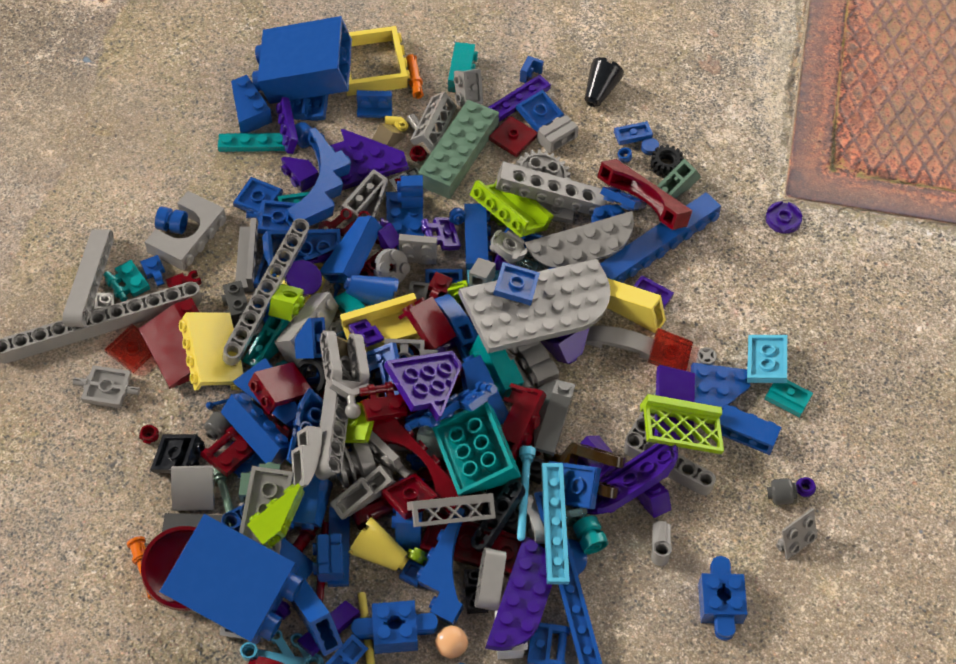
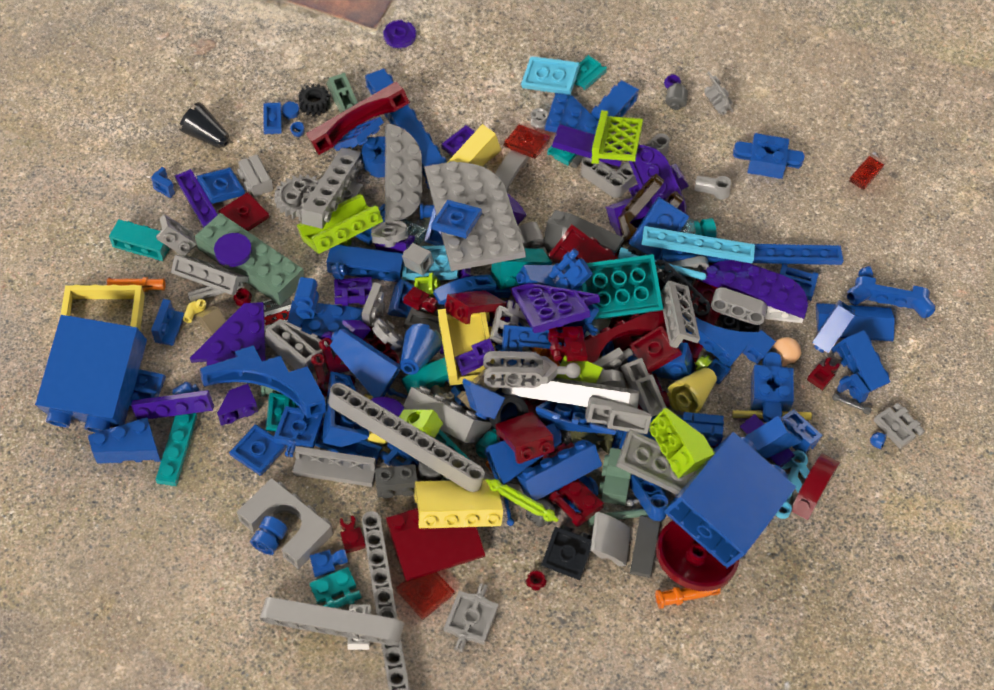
camera: 80 degrees left, 0 degrees up
(218, 400) = (522, 500): none -> lime wheel
(453, 126) = (232, 249): none -> dark purple tile

